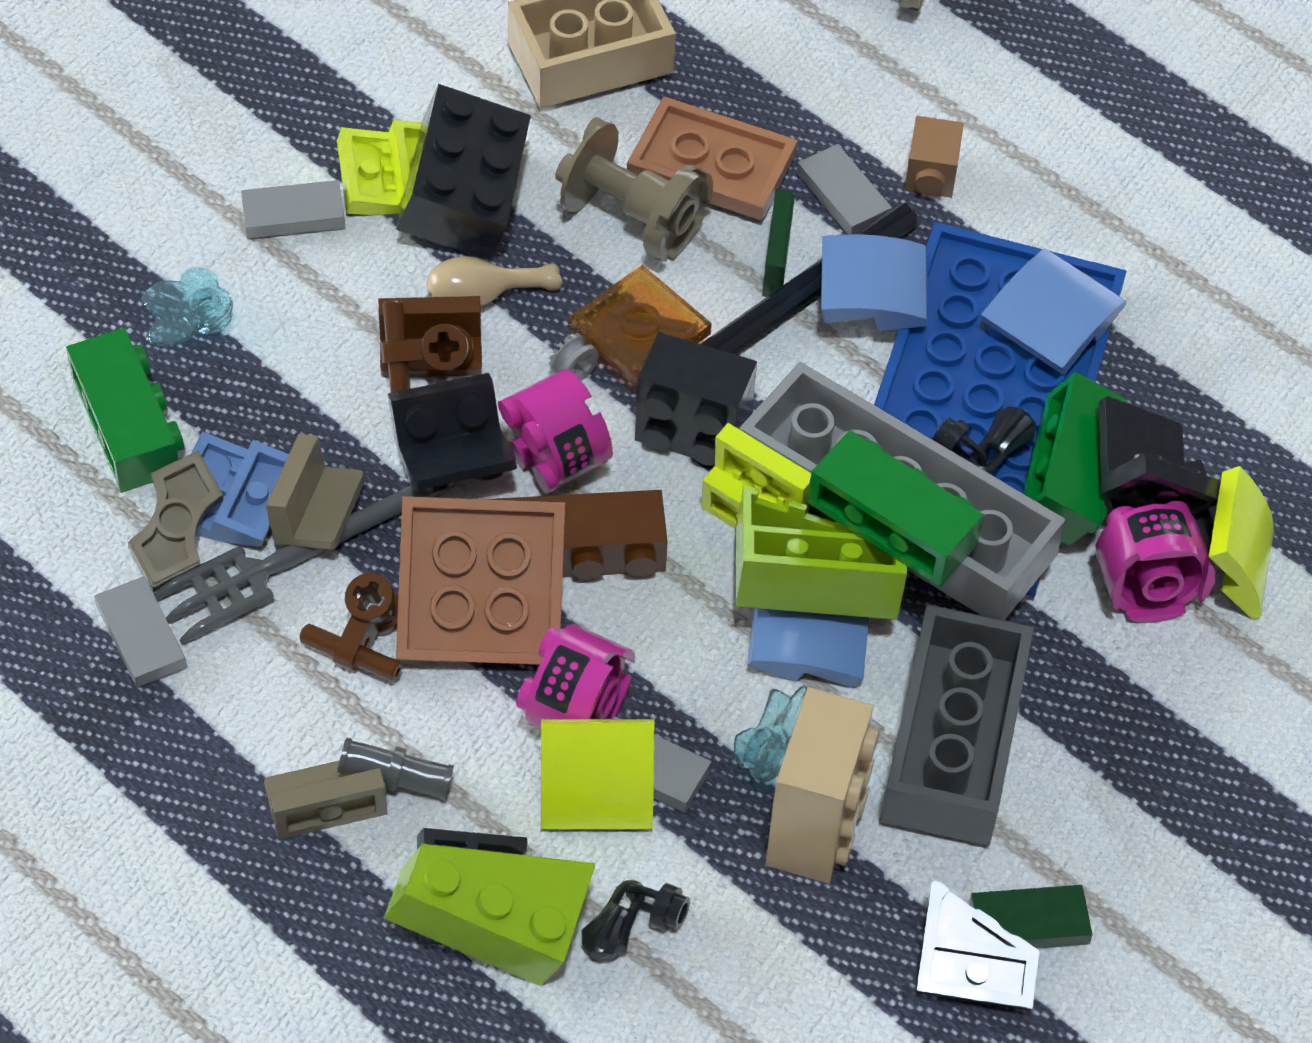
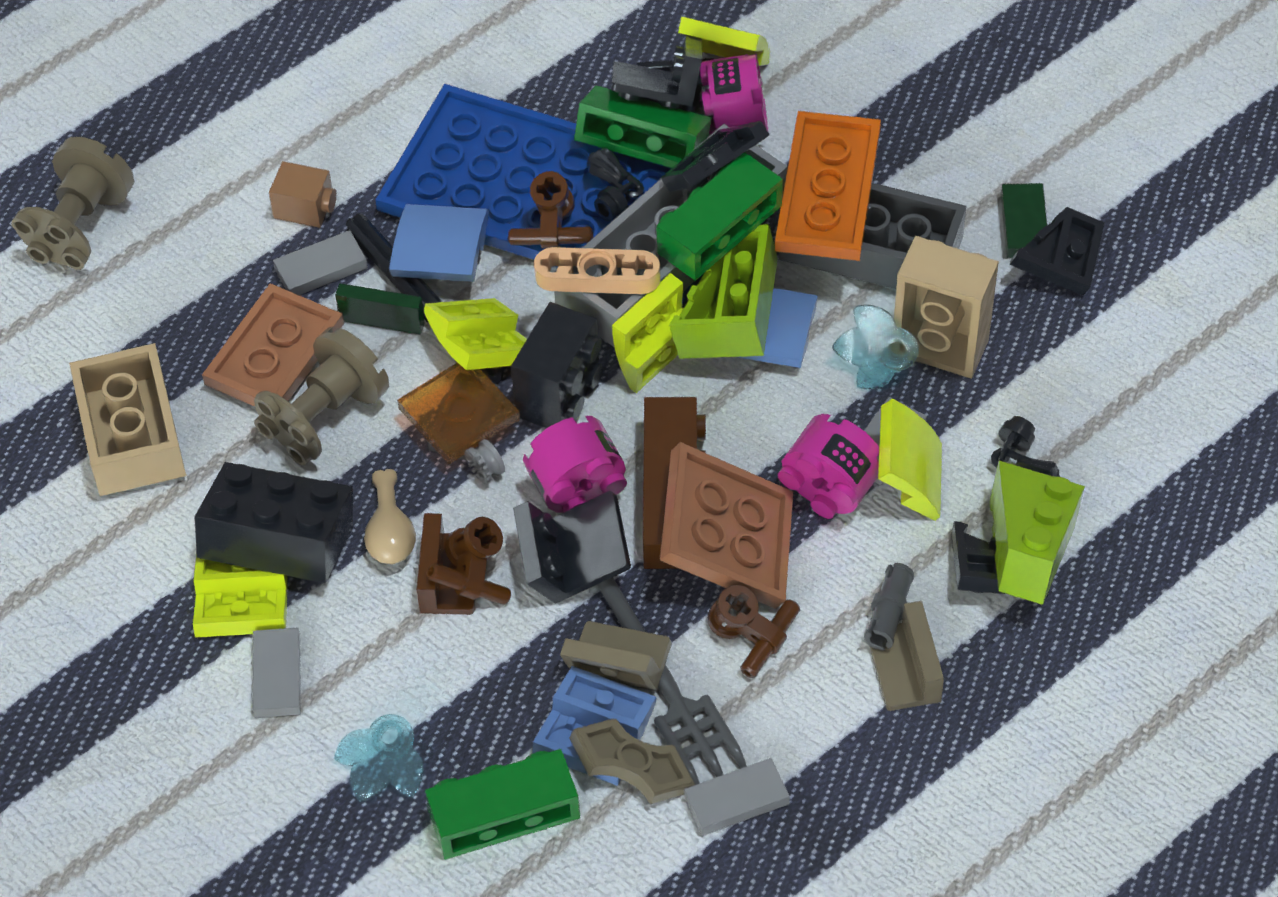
camera: 80 degrees left, 0 degrees up
(751, 322) = (476, 332): none -> neon yellow slope
(790, 413) = (583, 258): none -> light nougat beam
(924, 377) = (554, 204): none -> reddish brown piece
(983, 490) = (712, 155): none -> black wing
(991, 643) = (828, 186): none -> orange plate
(1053, 310) = (489, 127): medium blue slope -> none

